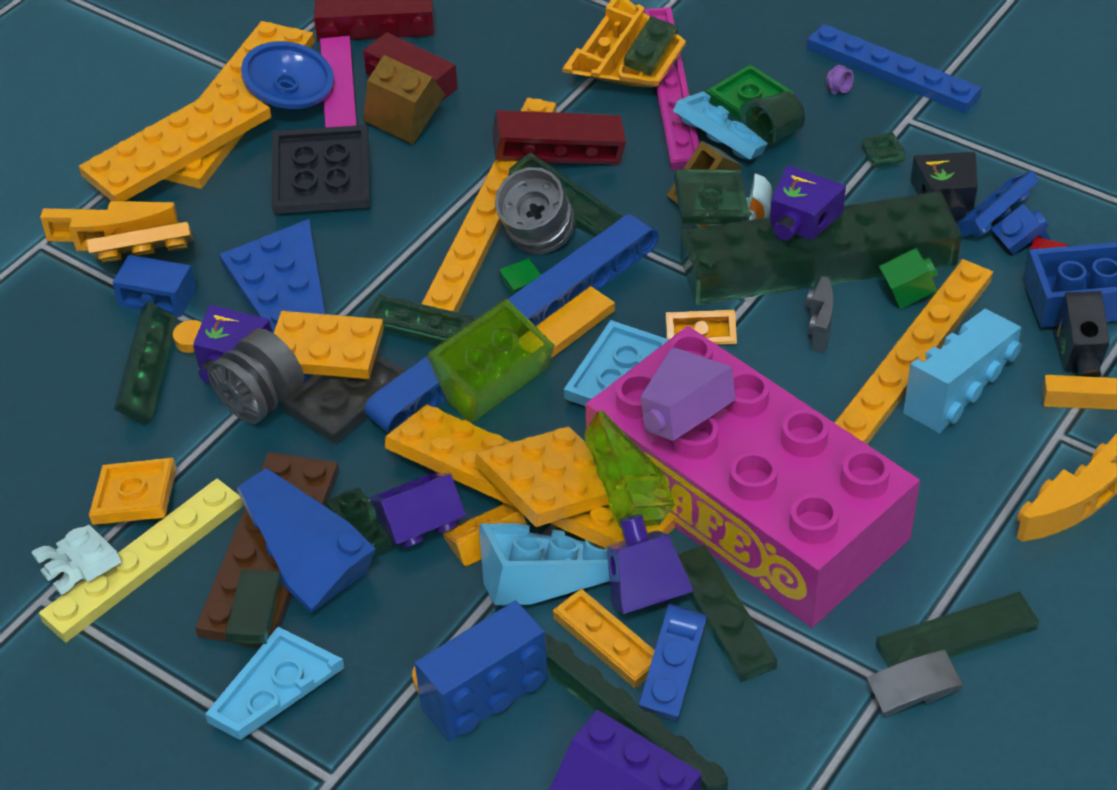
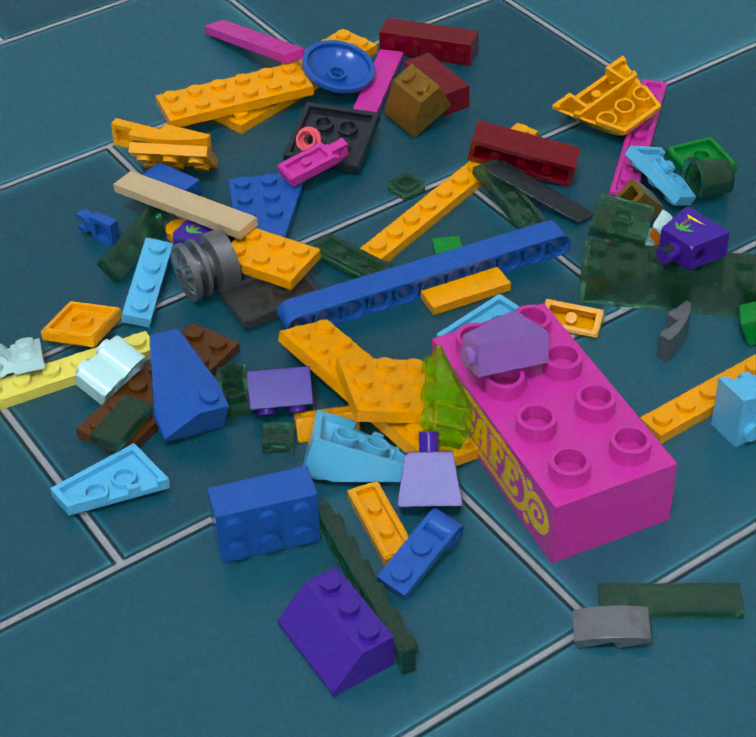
camera: 20 degrees right, 5 degrees down
(93, 357) = (103, 227): none -> blue plate
(165, 63) = (255, 41): none -> dark pink tile
(187, 415) = (147, 283): none -> medium azure plate
(193, 304) = (186, 204): none -> tan tile
(202, 543) = (109, 369): none -> light aqua brick
(290, 184) = (301, 138): none -> coral plate
(316, 208) = (312, 161): none -> dark pink hinge
(435, 210) = (406, 186): none -> clear green tile
(440, 568) = (278, 437): none -> clear green tile
(490, 359) = (386, 297): clear neon green slope -> none
(530, 196) = (476, 200): flat silver wheel -> none
(596, 179) = (539, 190): none -> black sticker
(650, 45) = (629, 102): clear green plate -> none
(726, 616) = (482, 532): clear green plate -> none

